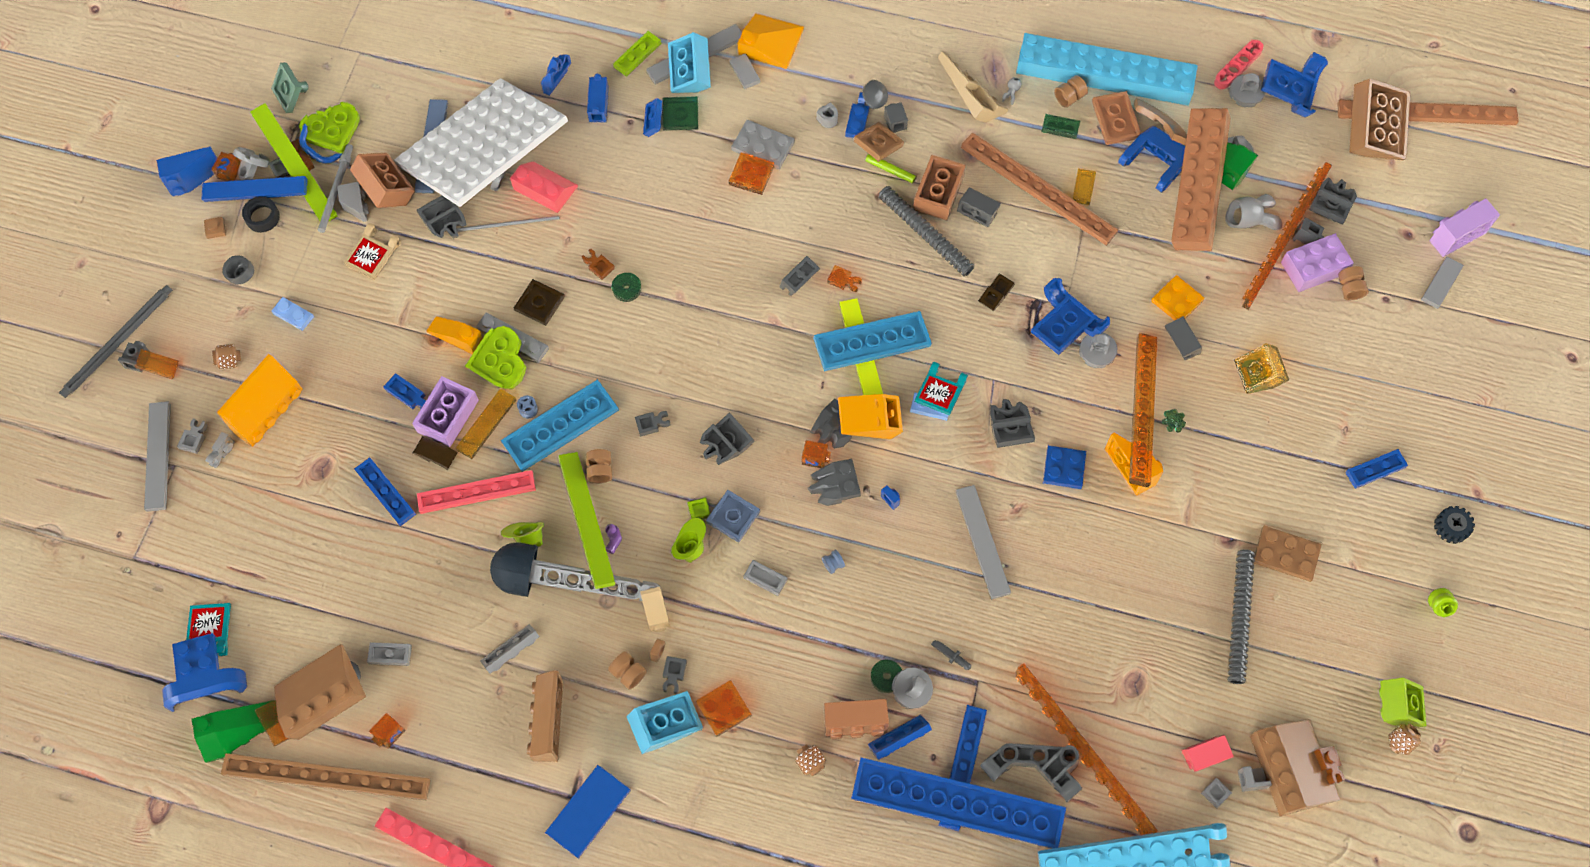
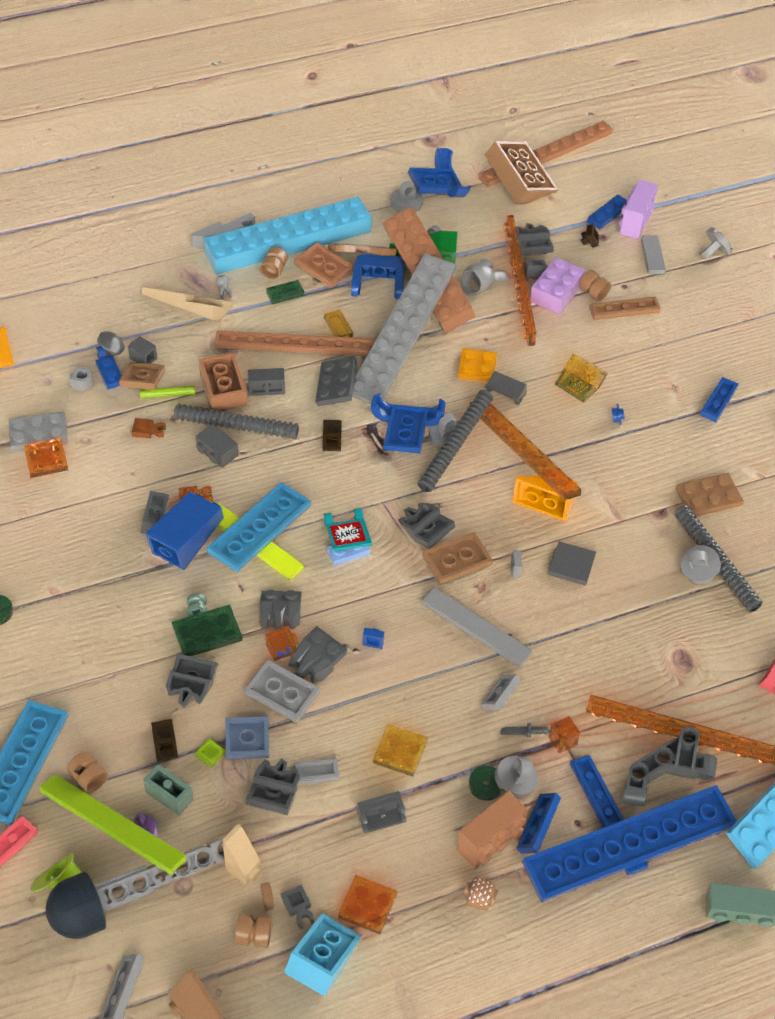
camera: 40 degrees left, 15 degrees down
(644, 520) = (168, 789): none -> sand green brick
(649, 424) = (107, 709): dark grey plate -> none
(673, 477) = (164, 740): none -> dark brown slope
(689, 540) = (225, 780): lime piece -> none
(723, 569) = (273, 787): none -> dark grey plate
(767, 406) = (207, 631): none -> clear green plate
(774, 380) = (196, 604): none -> sand green wheel
(787, 495) = (282, 691): none -> light grey plate
(787, 644) = (381, 812): none -> dark grey hinge
(811, 307) = (184, 529): none -> blue slope
(833, 561) = (366, 719): sand blue wheel -> none
(840, 604) = (400, 750): none -> clear yellow plate
(849, 192) = (145, 428): none -> dark orange plate
(870, 416) = (307, 581): light orange slope -> none
(892, 244) = (216, 446): none -> dark grey brick
(956, 610) = (500, 692): none -> light grey plate
(977, 680) = (564, 734): none -> clear orange brick
(1014, 471) = (457, 558): none -> medium nougat plate
(1038, 242) = (336, 381): none -> dark grey plate
(1046, 29) = (217, 228): none -> light grey slope
(1058, 508) = (516, 564): none -> light grey tile
(1064, 467) = (494, 532): blue plate -> none
(1095, 362) = (455, 441): none -> dark grey piece
(1109, 537) = (572, 563): none -> dark grey tile
(1131, 226) = (402, 328): none -> light grey plate
(1174, 420) = (549, 448): clear green plant -> none
(1219, 612) = (700, 564): none -> light grey tile
(1238, 64) = (385, 186): coral beam -> none
(1266, 425) = (618, 414): none -> blue plate
(1366, 322) = (624, 308): none -> medium nougat tile
(1395, 228) = (590, 236): none -> dark brown tile
(1434, 211) = (607, 212): none -> blue plate
(1516, 309) = (718, 242): none -> light grey tile

